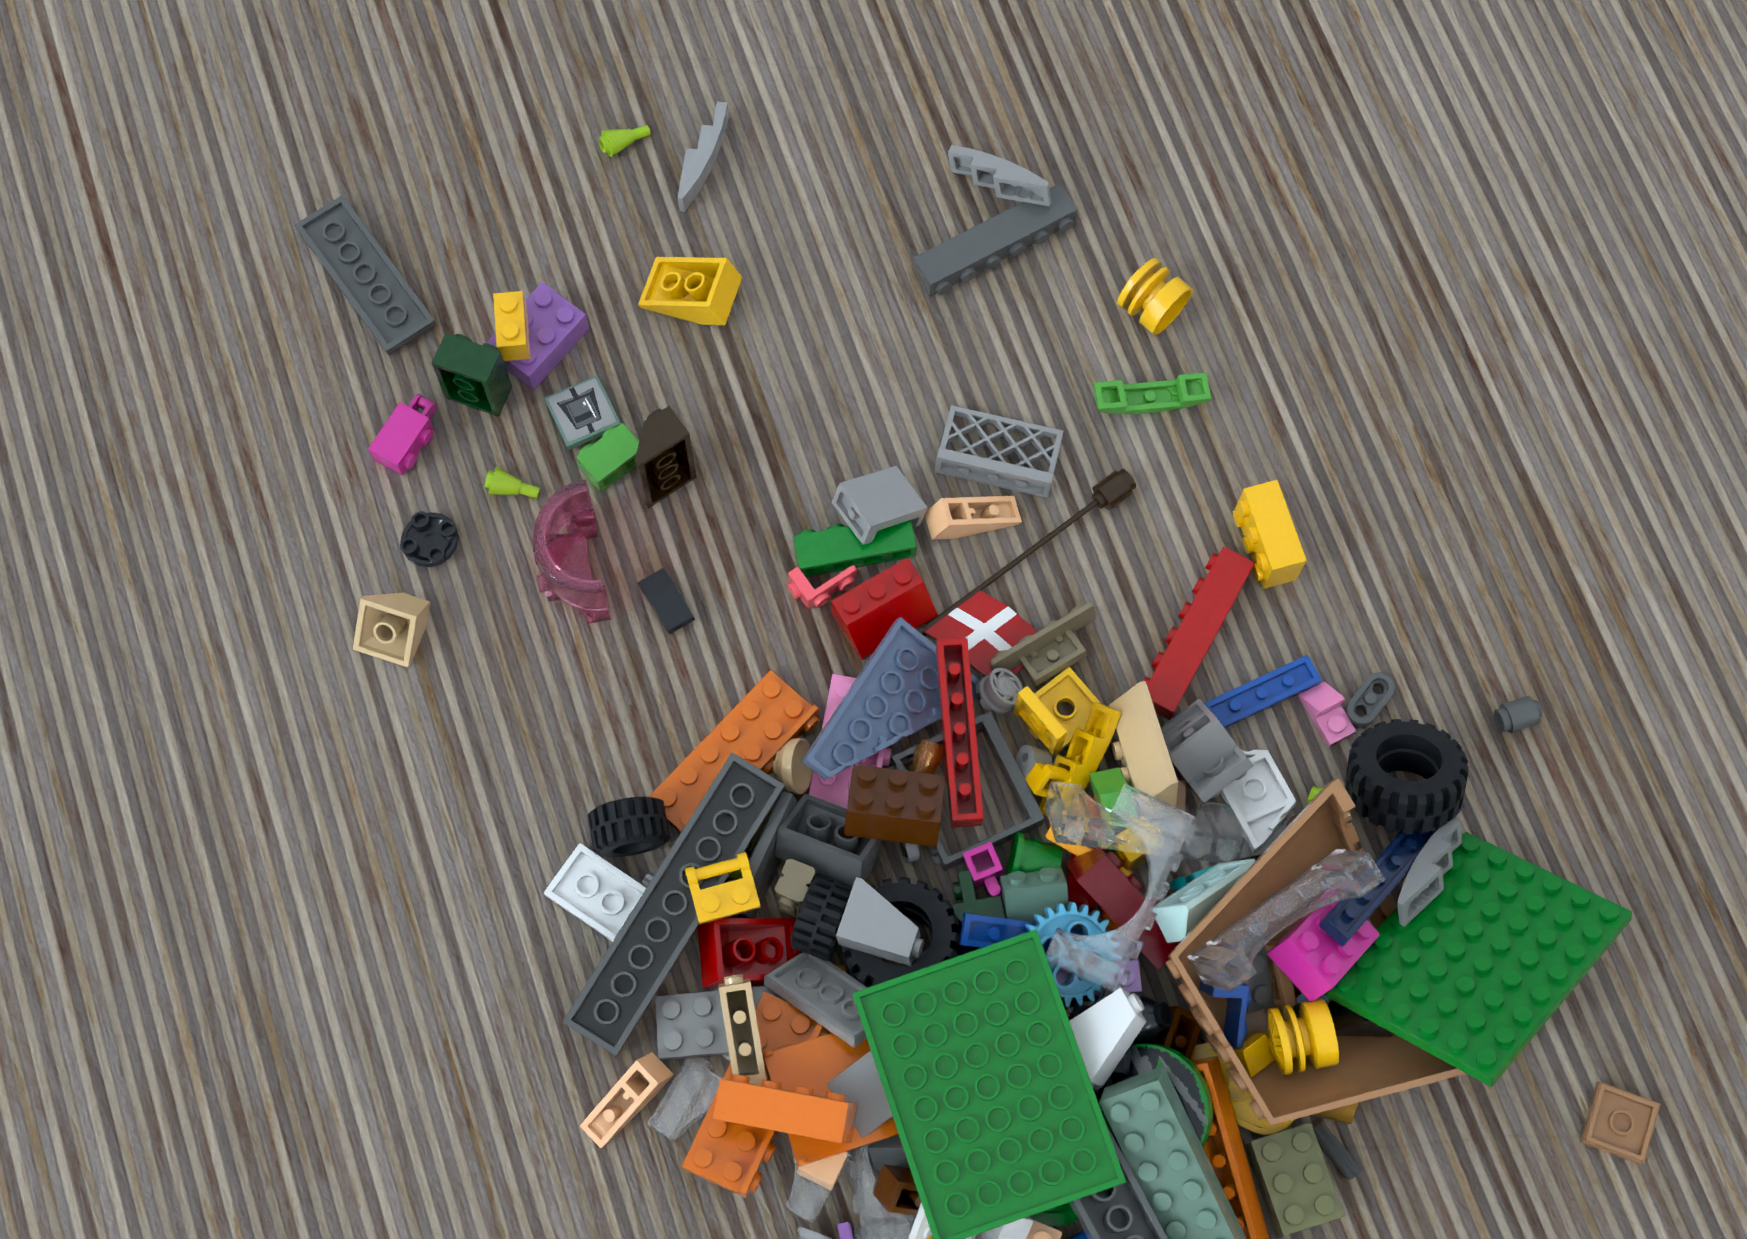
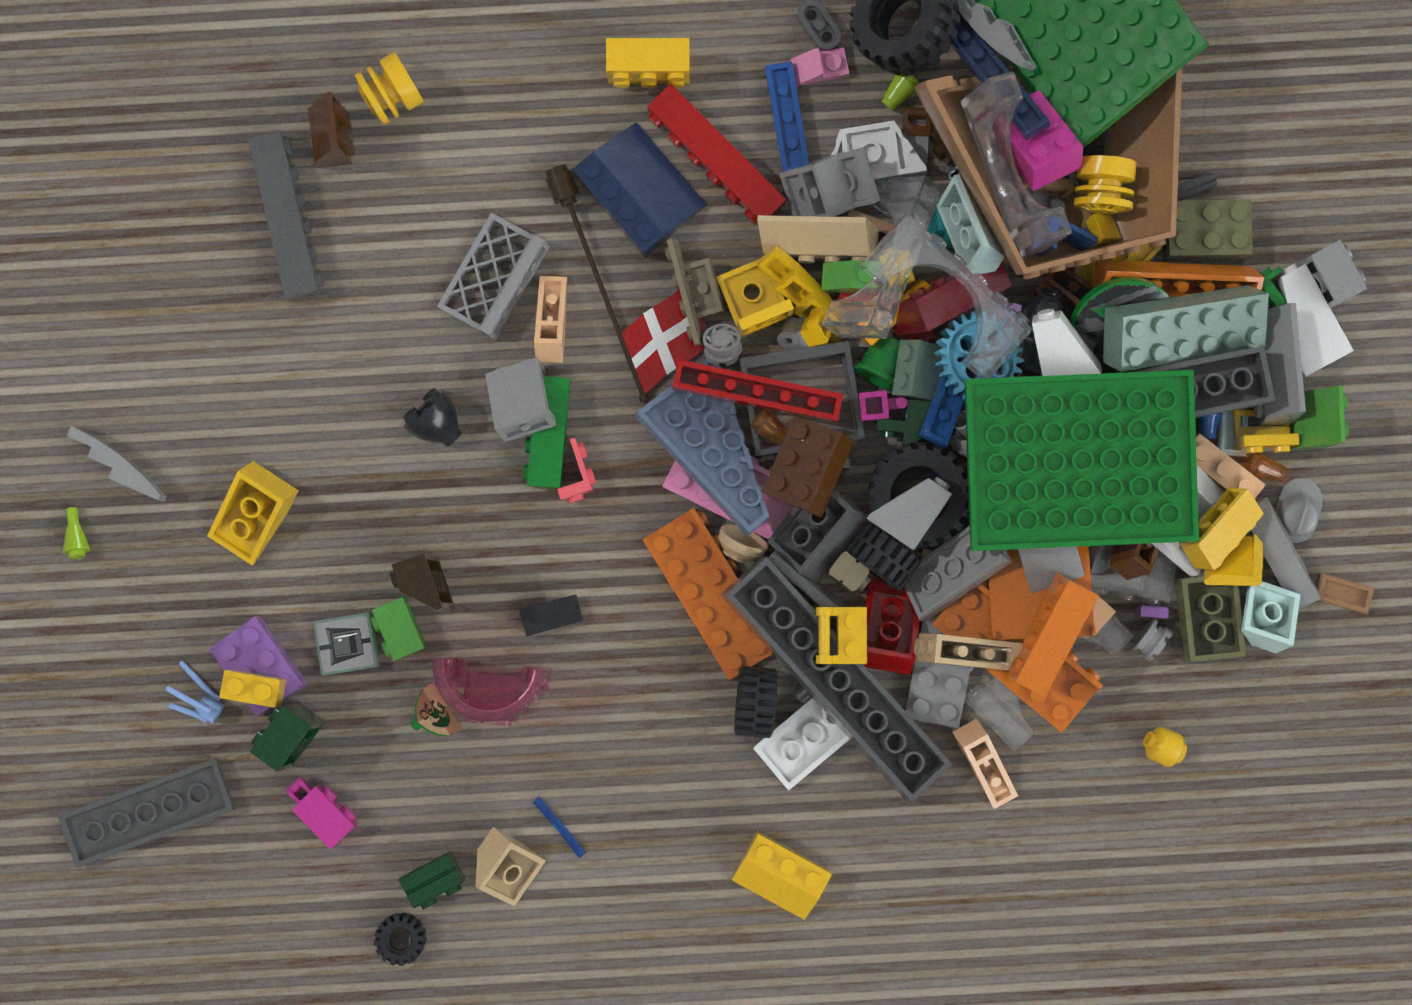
camera: 70 degrees left, 15 degrees up
(284, 530) = (394, 955): none -> black tyre
(360, 558) = (432, 880): none -> dark green brick
(429, 539) = (430, 813): black dish -> none
(445, 674) = (559, 826): none -> blue piece
(451, 912) = (781, 875): none -> yellow slope
(482, 300) = (207, 709): none -> light blue plant
(503, 483) = (396, 732): lime cone -> none
(524, 510) = (433, 713): none -> shield
(834, 432) = (434, 420): none -> black piece
(875, 604) = (612, 423): red slope -> none
(1006, 177) = (229, 187): light grey slope -> none
(1092, 257) = (330, 133): none -> reddish brown slope
(1136, 565) = (639, 188): none -> dark blue slope
(1152, 396) = (480, 121): bright green slope -> none

